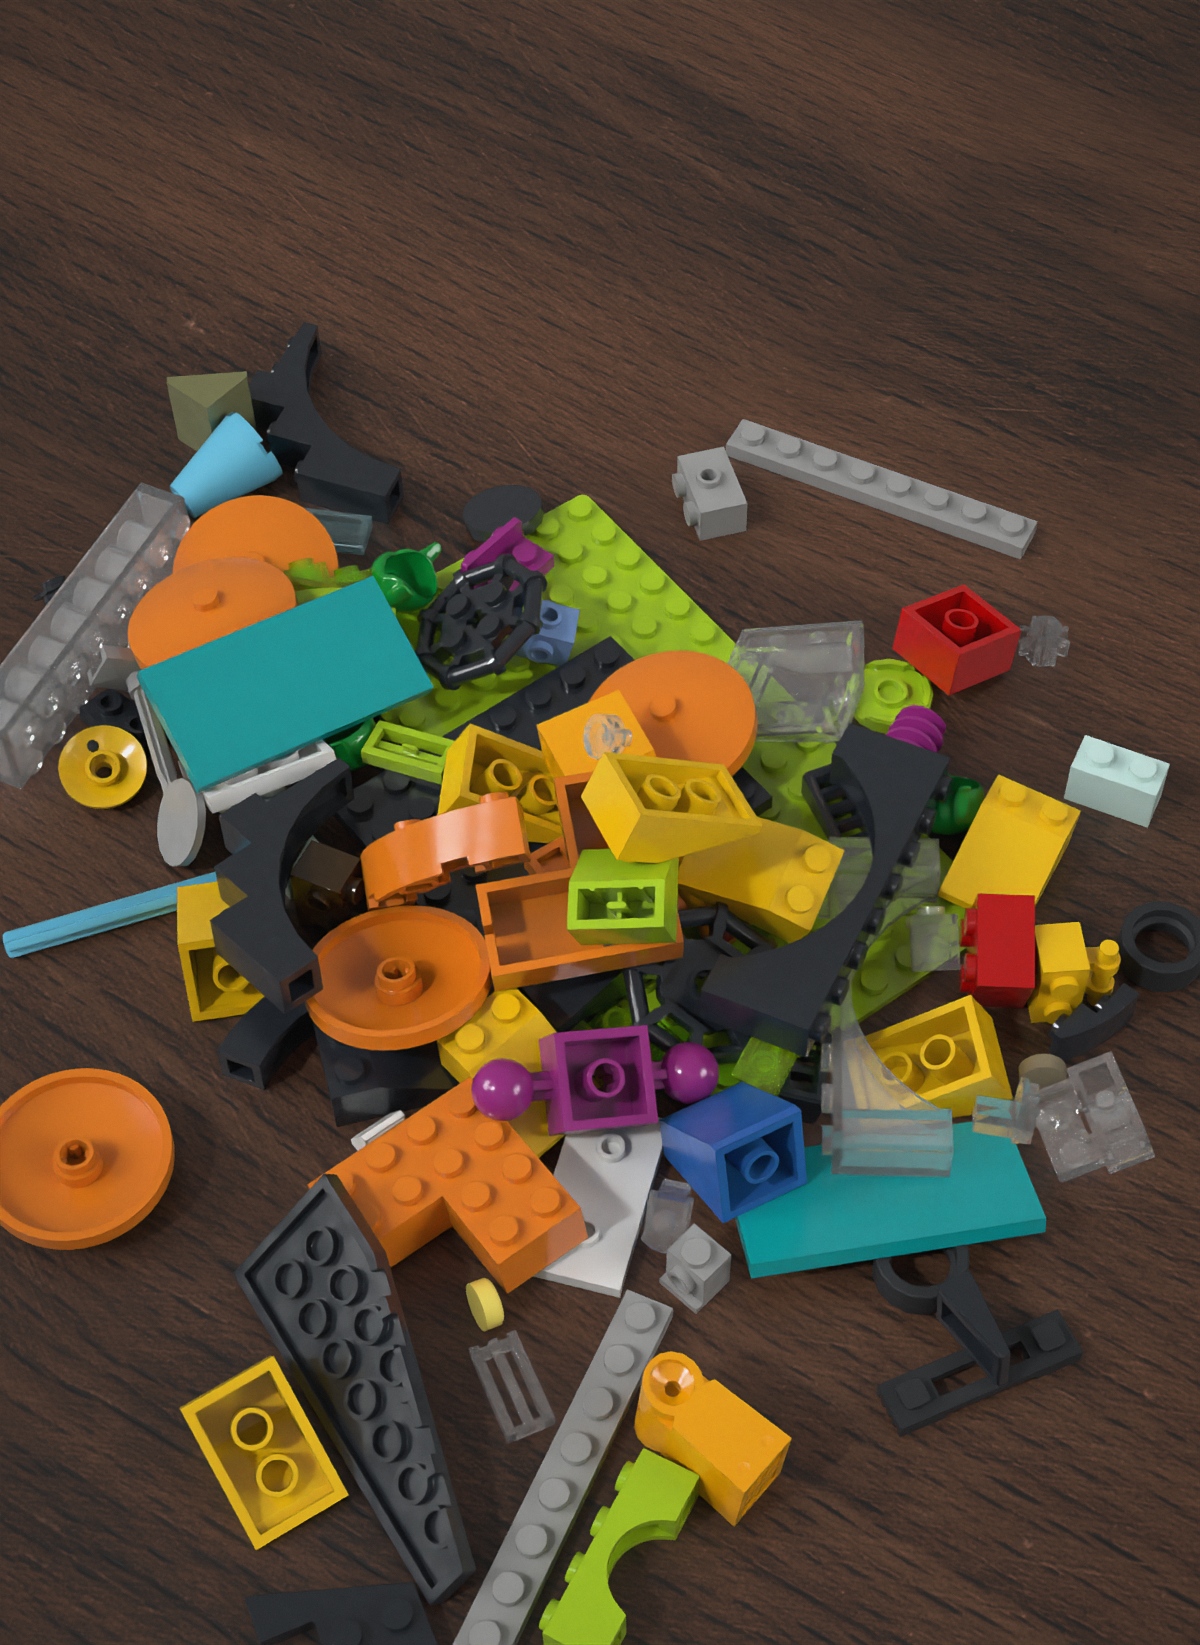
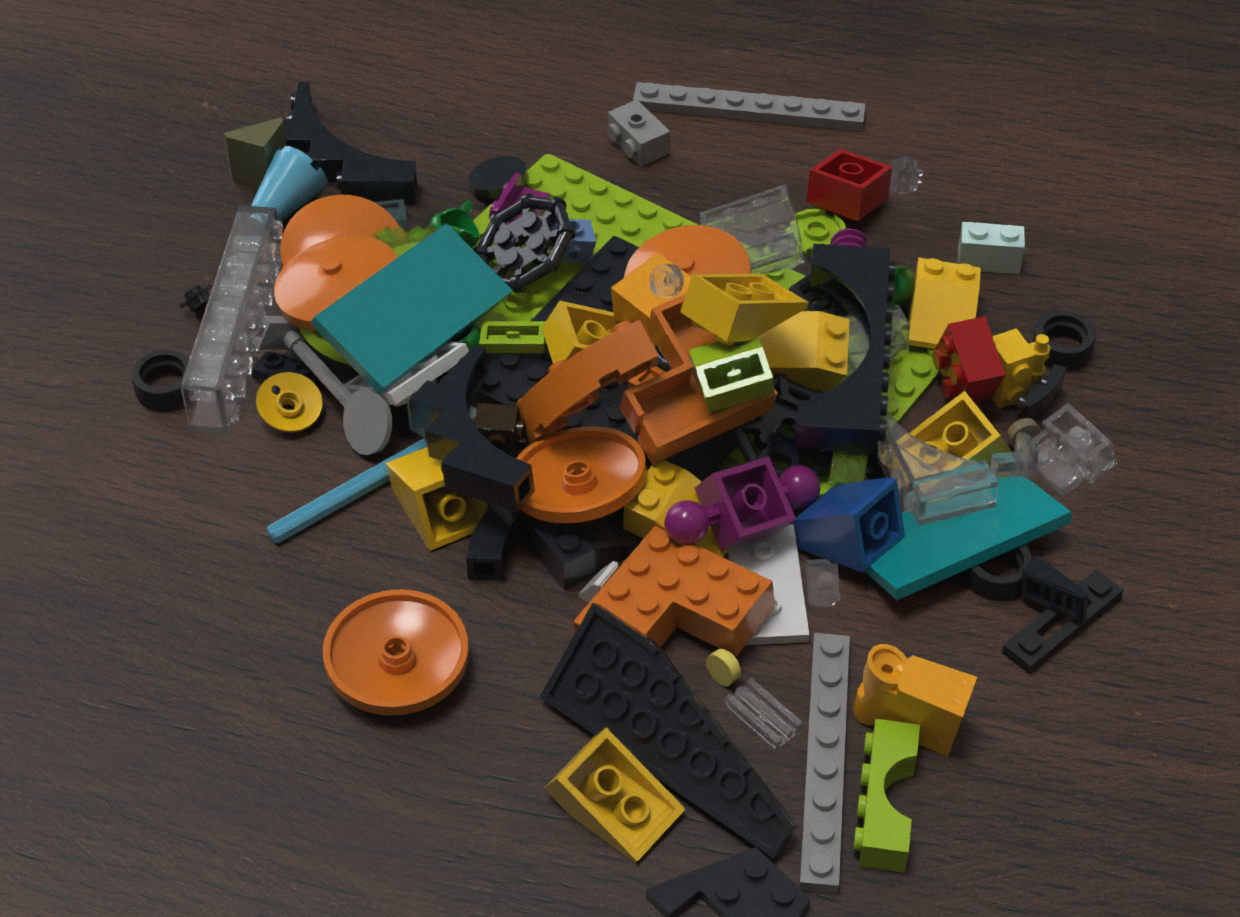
camera: 20 degrees left, 5 degrees down
(696, 1268) = (855, 606): light grey brick -> none
(934, 940) = (919, 369): clear bracket -> none

